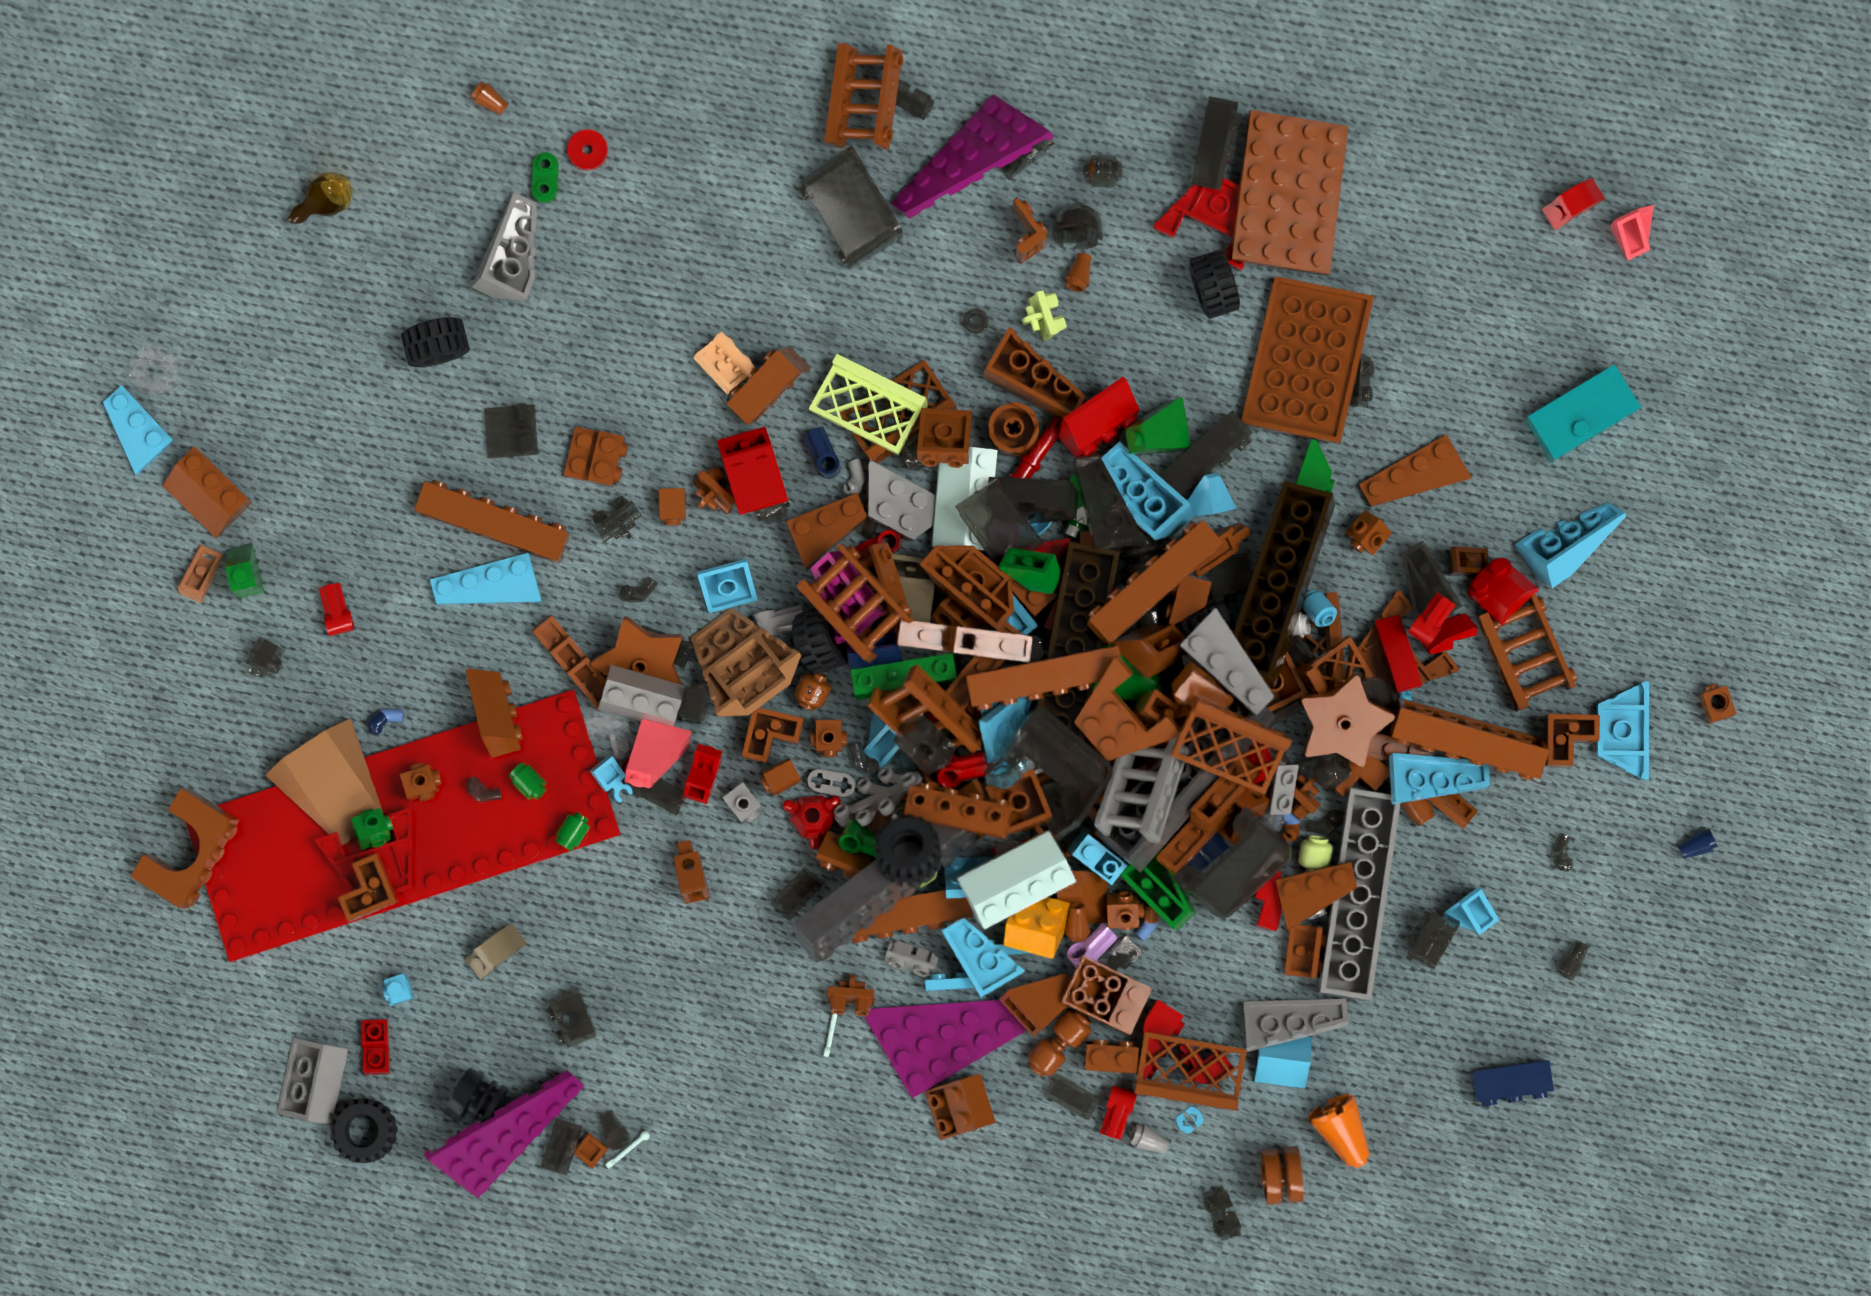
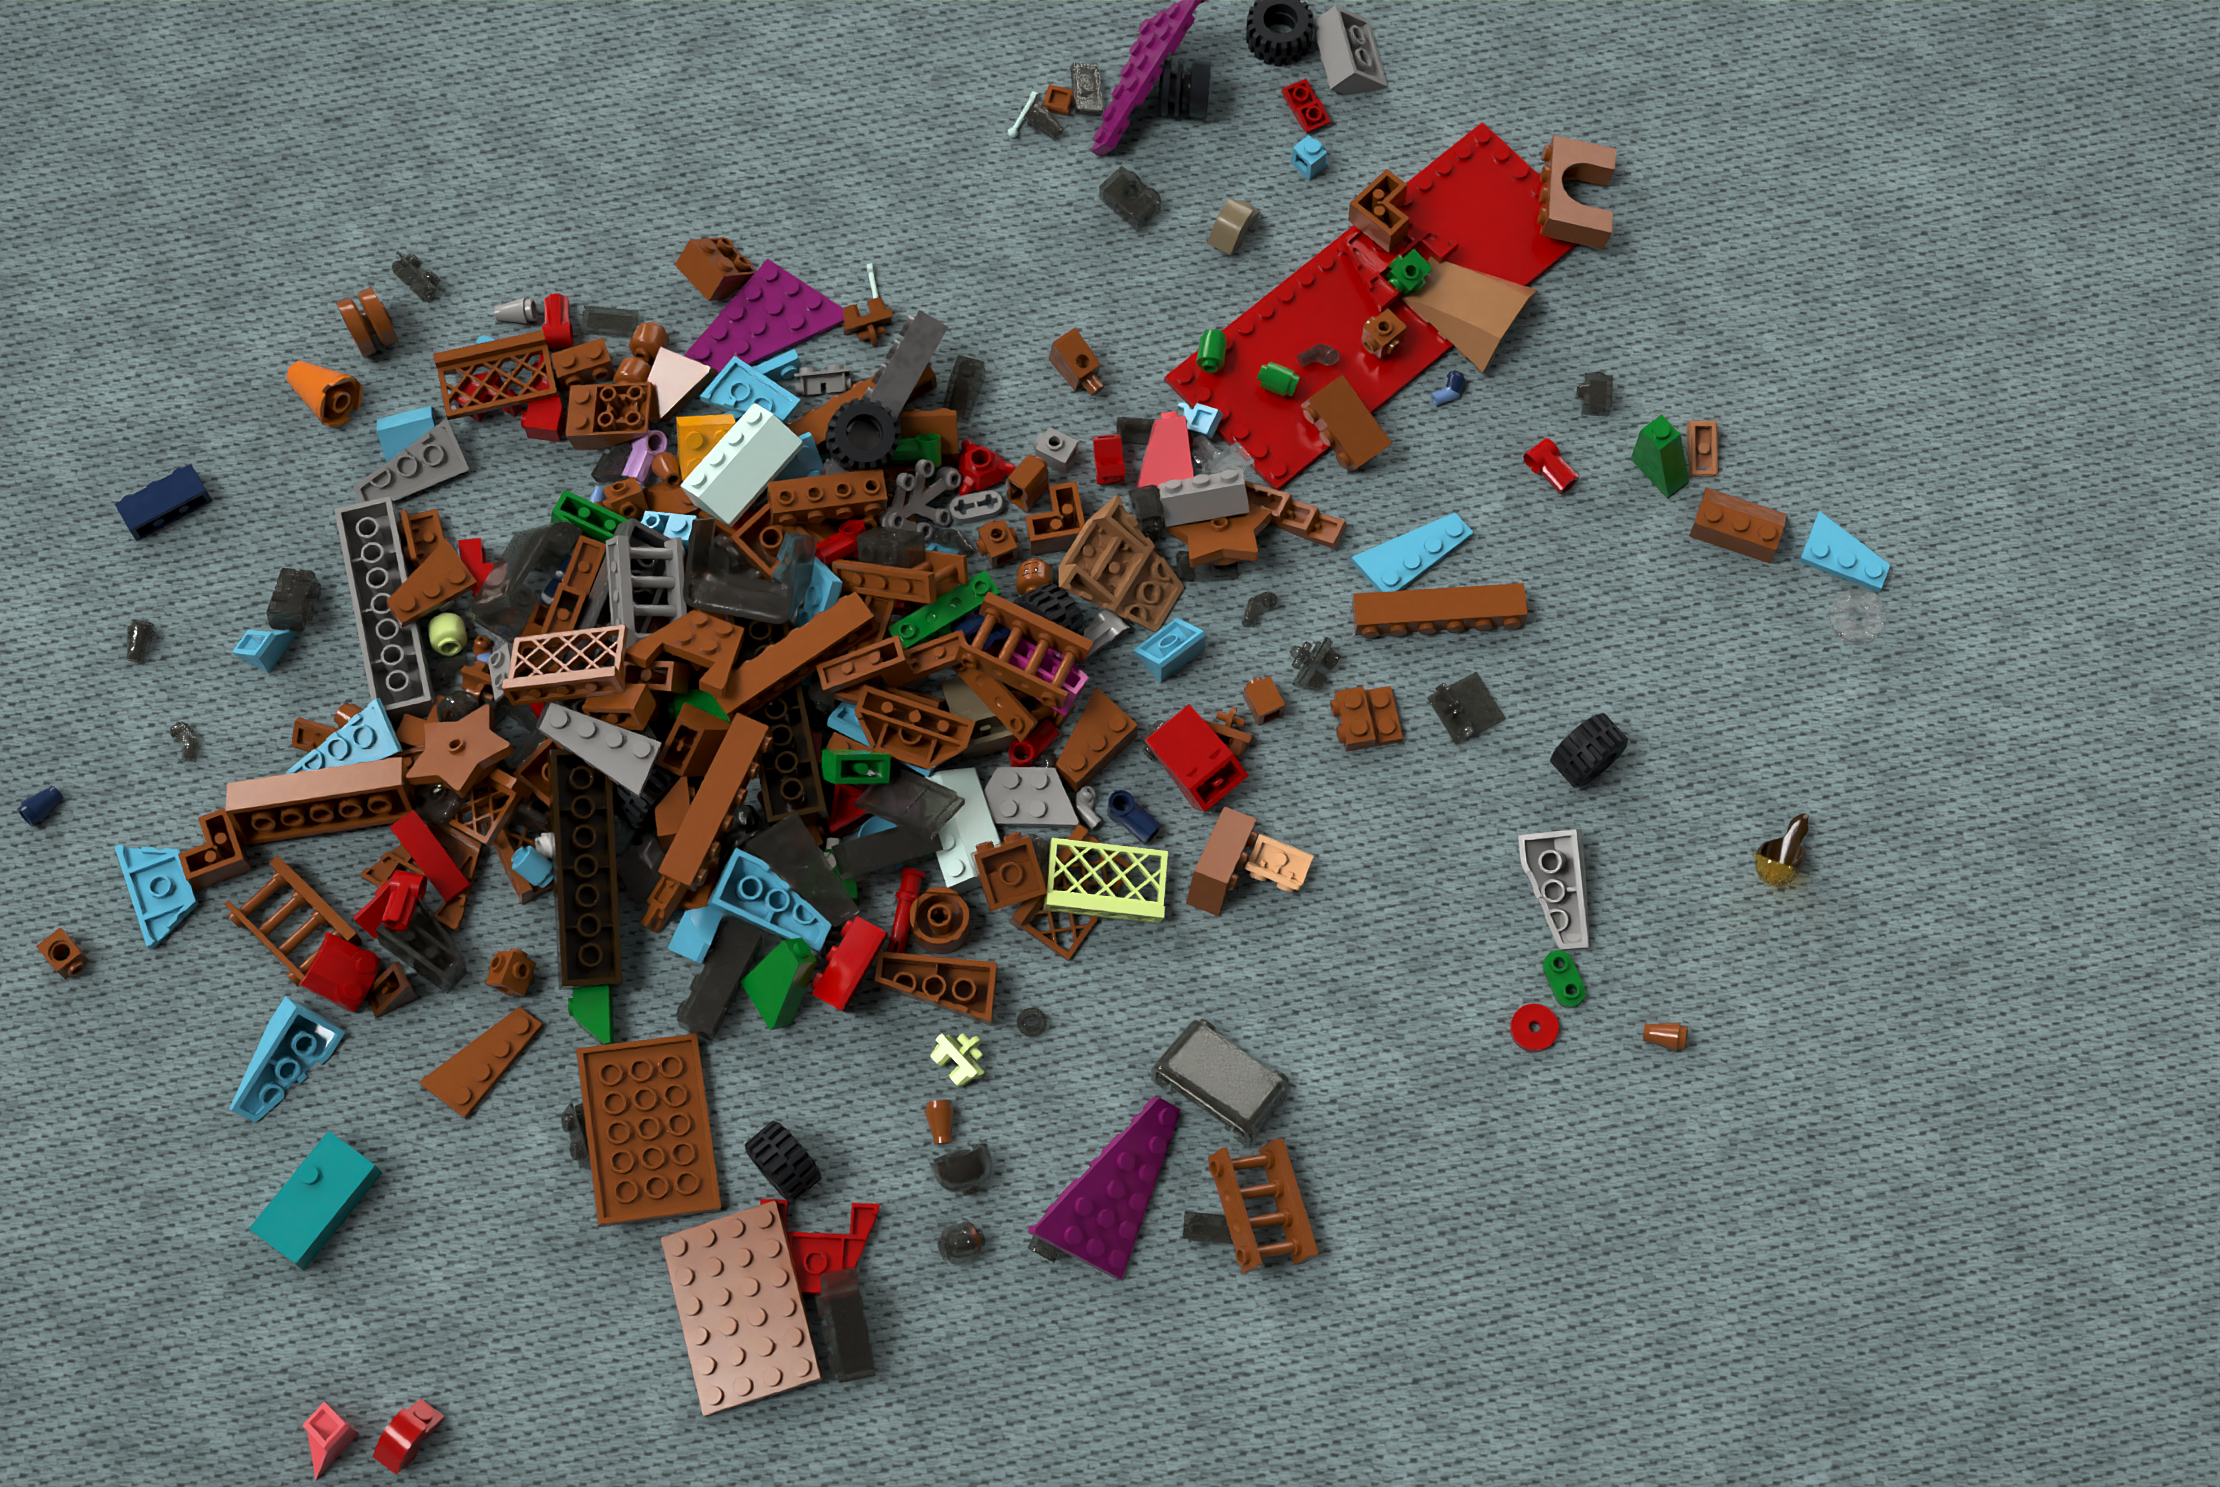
camera: 155 degrees right, 15 degrees down
(1029, 244) = (1002, 1132): dark orange bracket -> none

